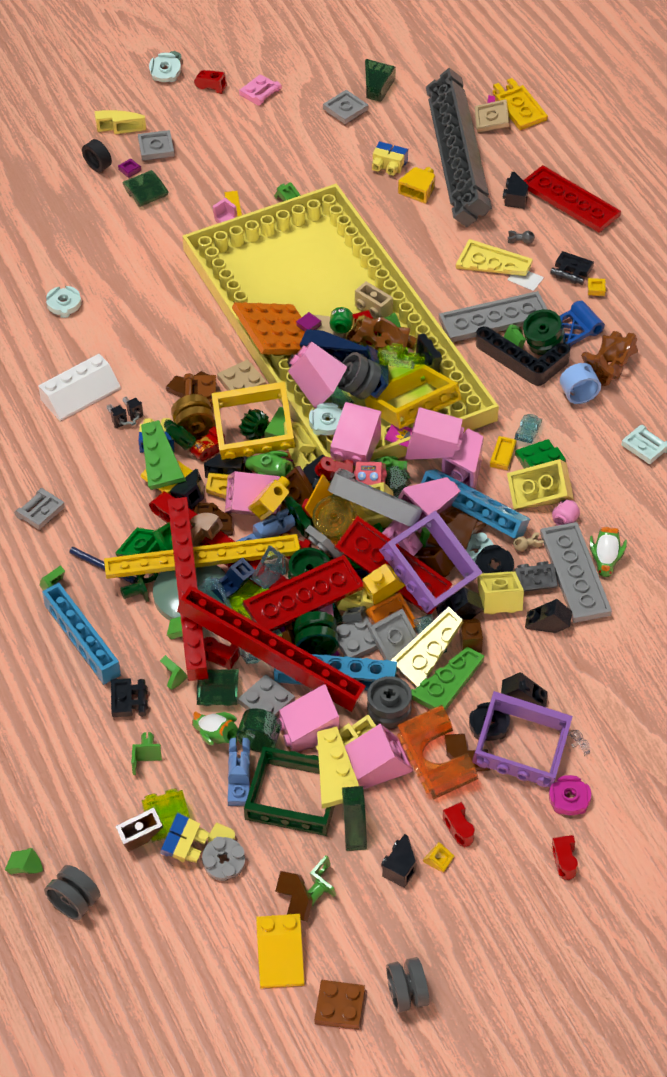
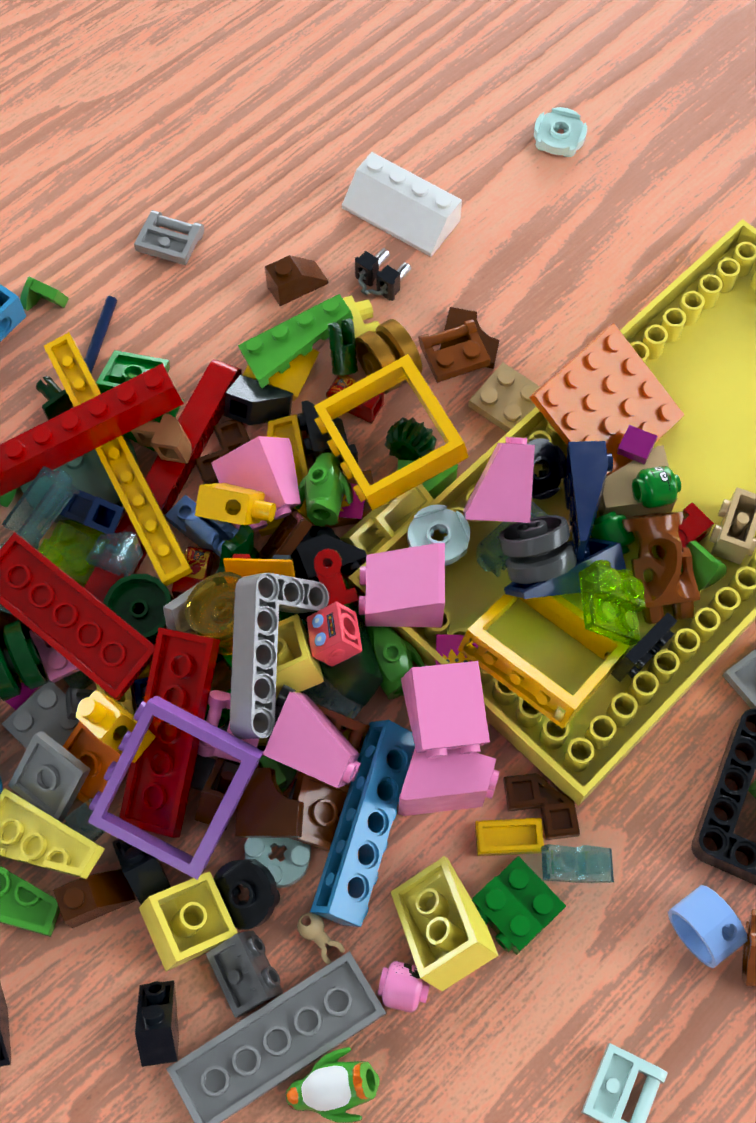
camera: 70 degrees right, 15 degrees up
(107, 456) = (293, 278): none -> reddish brown slope
(493, 430) = (534, 792): none -> reddish brown tile

